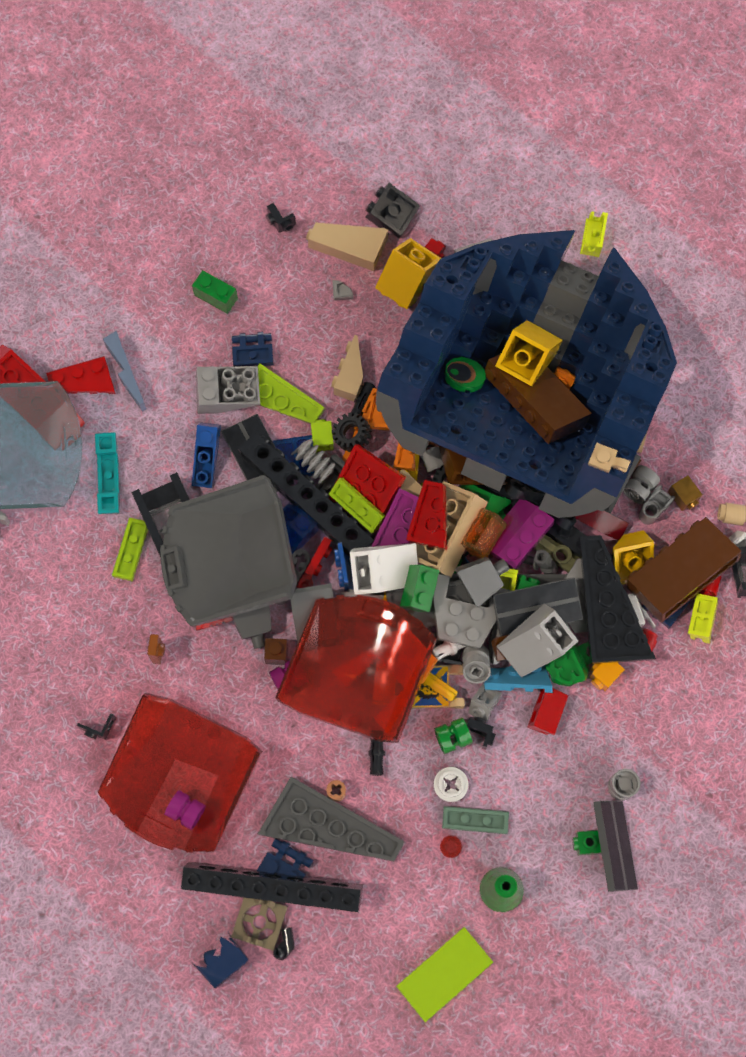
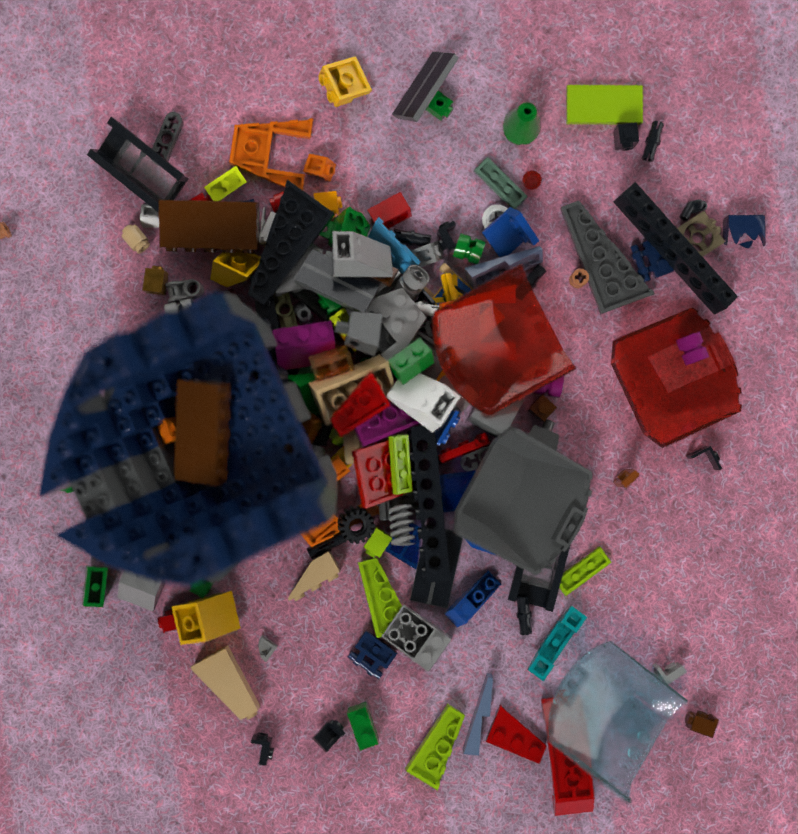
camera: 145 degrees left, 15 degrees up
(140, 318) = (432, 755): none -> lime wing
(153, 475) = (524, 614): none -> black pin
(236, 265) = (329, 734): none -> black bracket
(372, 976) = (652, 141): none -> black pin
(391, 209) = (172, 683): black plate -> none
(399, 956) = (626, 136): none -> black brick
(403, 755) = (483, 272): none -> sand blue slope
(431, 776) = (509, 232): none -> blue bracket
(464, 374) = (242, 490): green tile -> none
(510, 223) = (94, 586): none -> green brick
(510, 706) = (412, 237): none -> black pin
(528, 352) = (180, 465): yellow slope -> none
(593, 234) = (37, 533): neon yellow hinge -> none
(605, 458) = (209, 318): tan plate -> none
(623, 784) = (383, 120): light grey wheel -> none
(640, 700) = (319, 166): none -> orange bracket
(687, 792) = (344, 81): none -> yellow plate
(709, 667) = (253, 144): none -> orange wing

